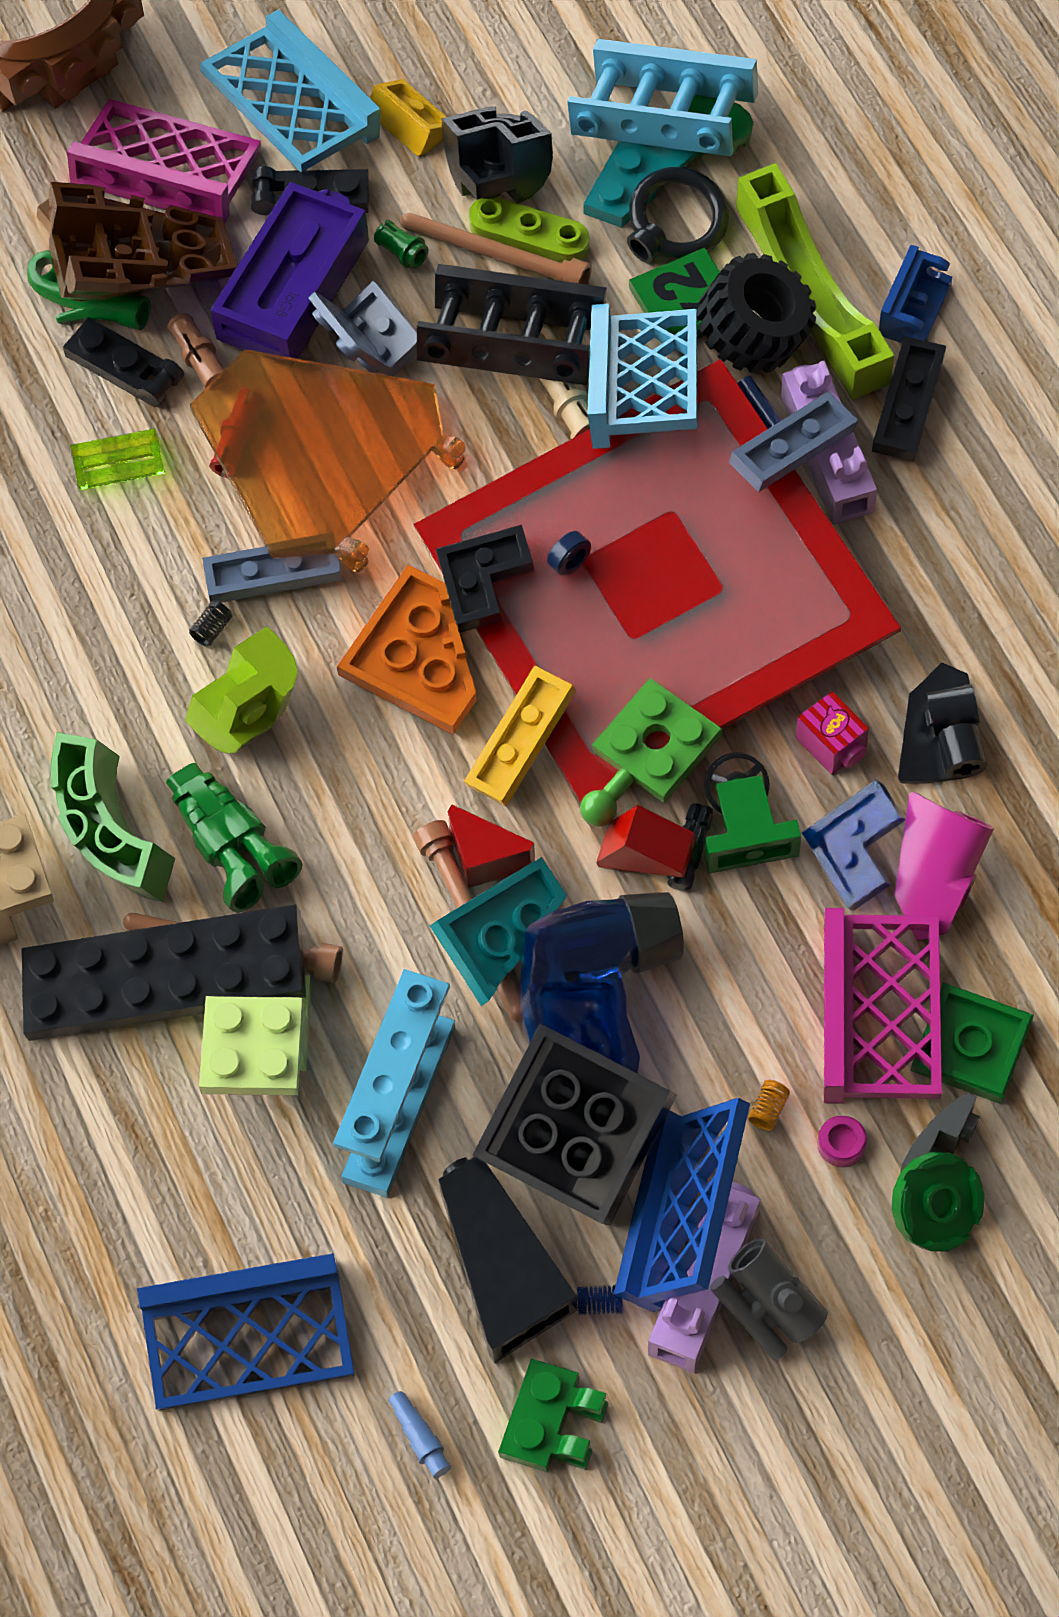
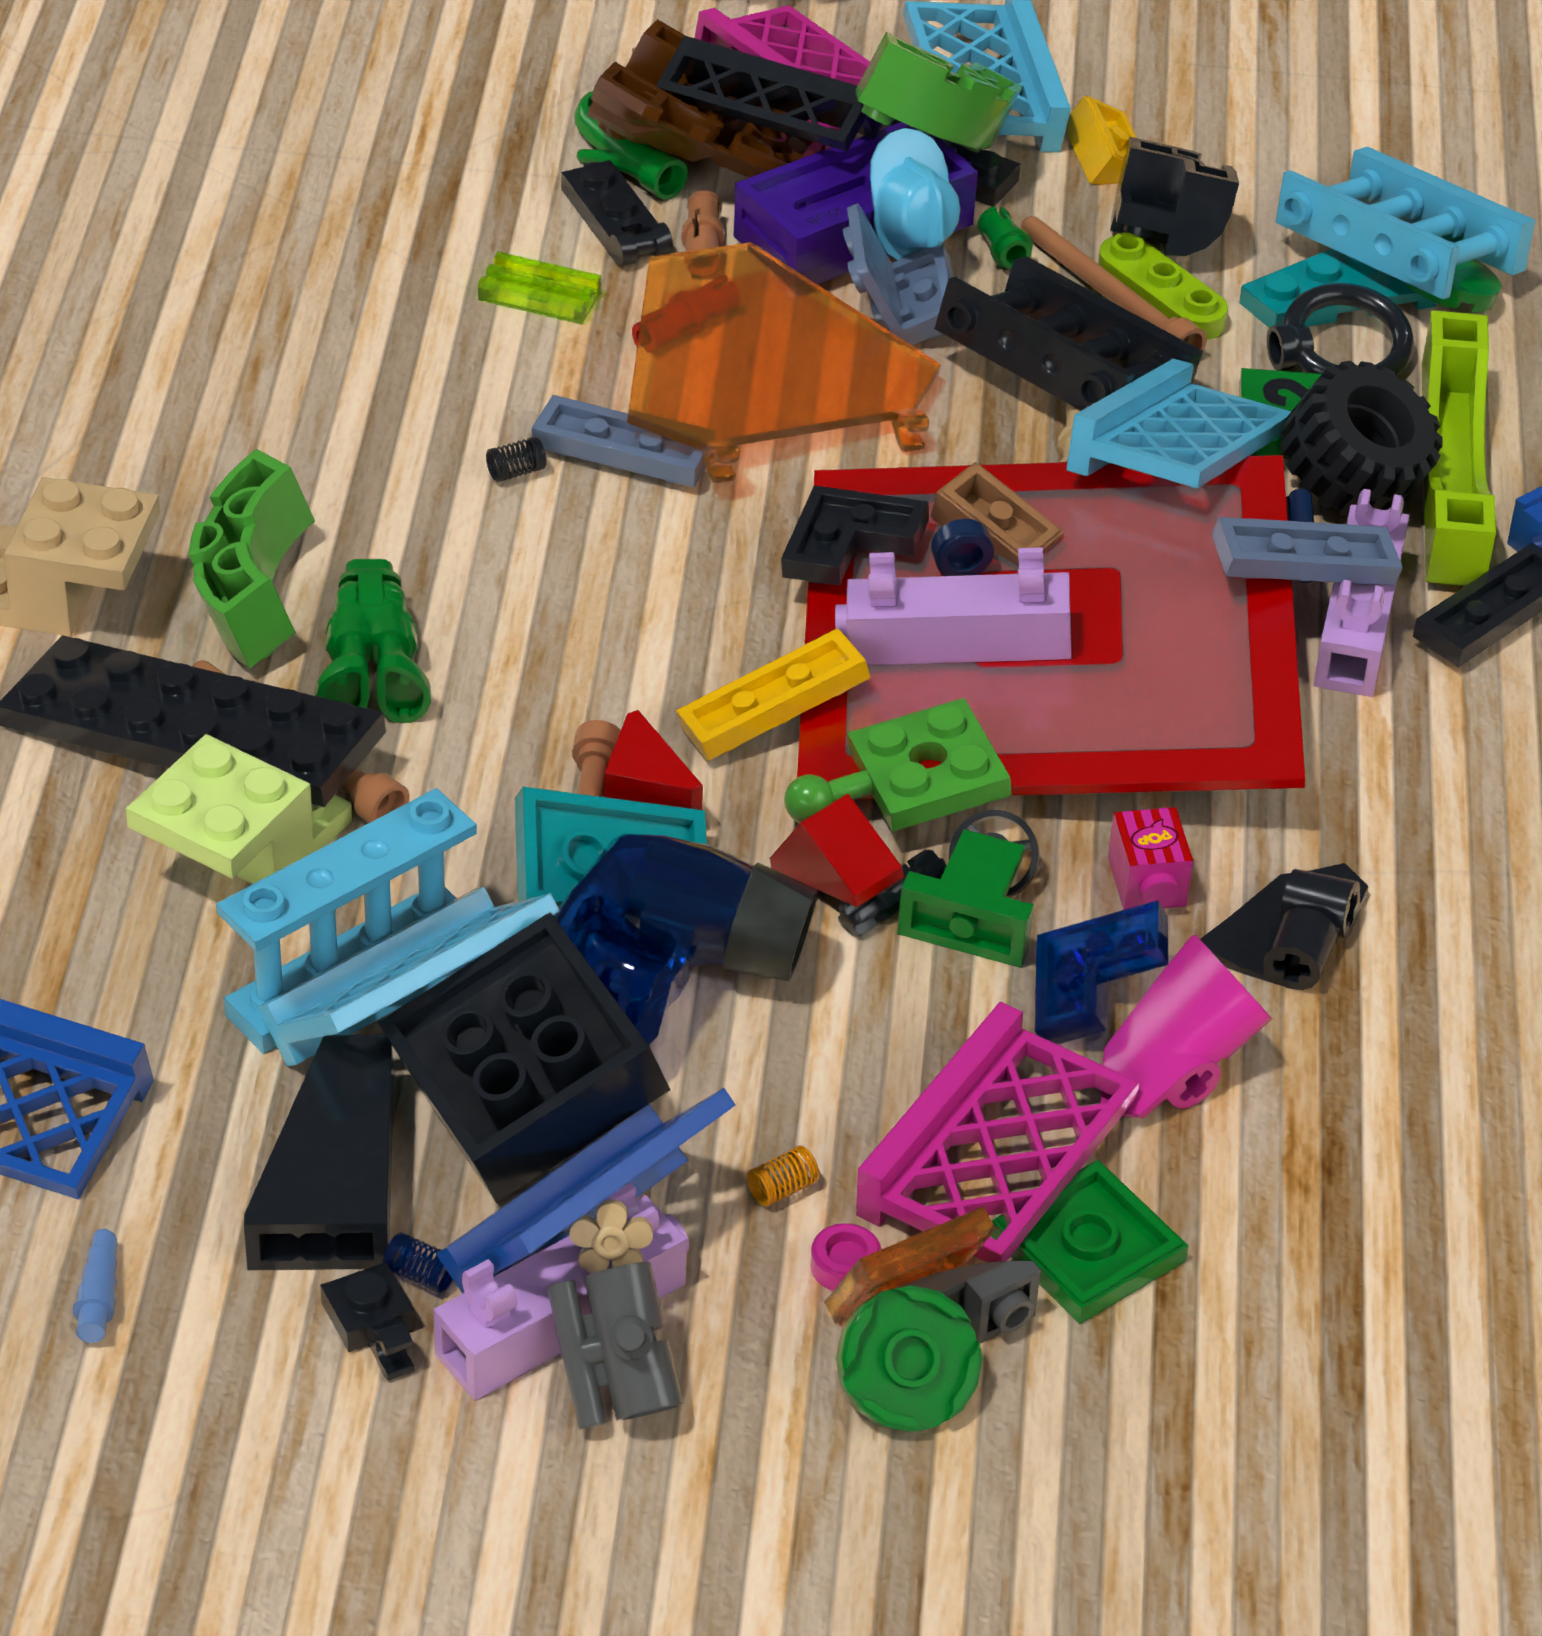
camera: 25 degrees right, 20 degrees down
(186, 212) = (769, 84): none -> black fence
(247, 696) = (493, 522): lime brick -> none
(311, 172) = (925, 94): none -> bright green brick
(339, 258) = (911, 193): none -> medium azure piece
(414, 653) = (715, 579): orange plate -> none
(444, 1079) = (394, 971): none -> medium azure fence
(540, 1414) = (249, 1342): green plate -> none
(564, 508) = (1006, 515): none -> medium nougat slope
(596, 1352) = (372, 1312): none -> black plate
(604, 614) = (958, 616): none -> lavender brick
(734, 1234) = (610, 1237): none -> tan plant
(901, 1139) = (916, 1257): none -> clear orange tile

